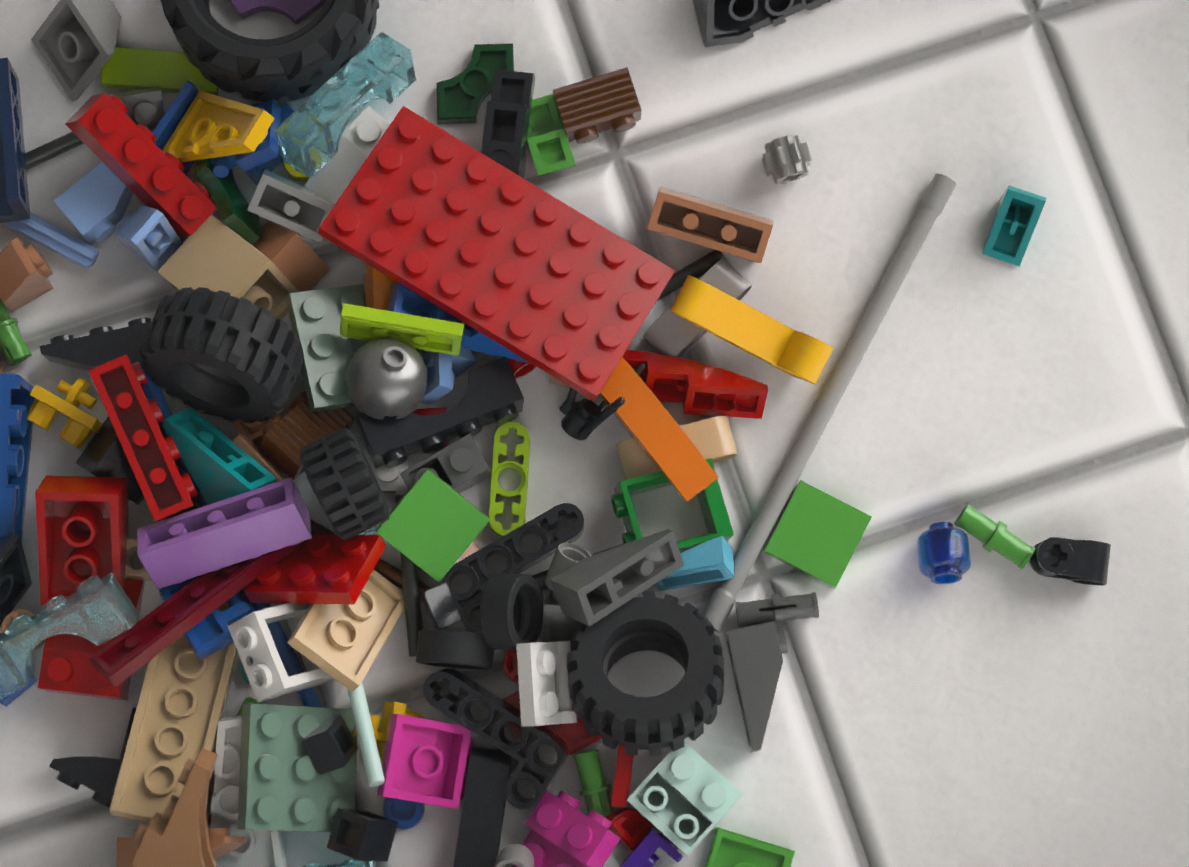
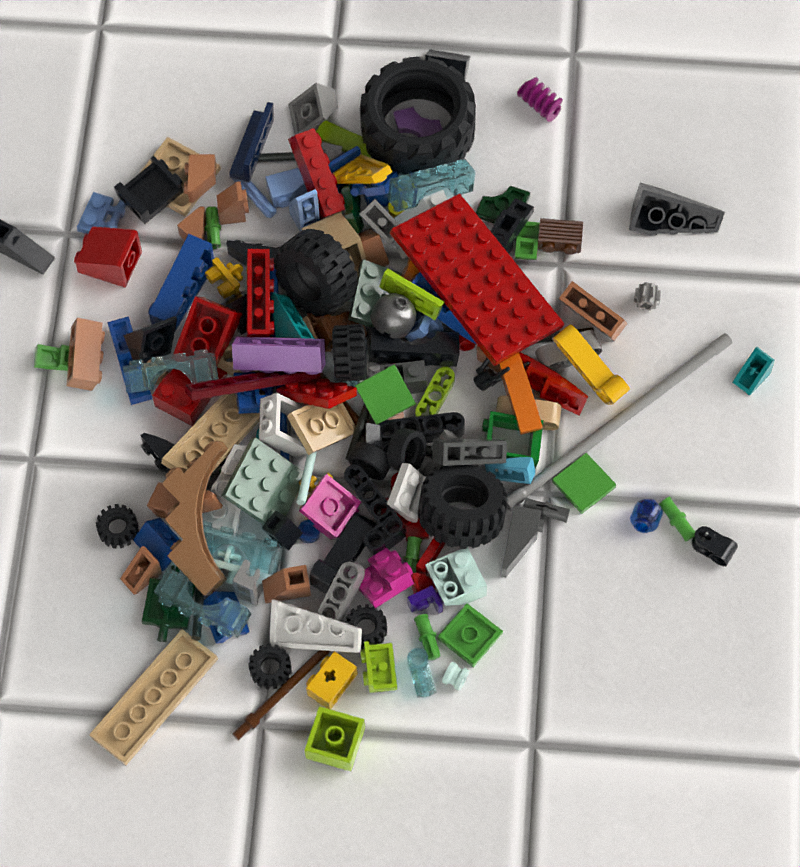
camera: 25 degrees right, 15 degrees down
(330, 745) = (285, 479): black slope -> none

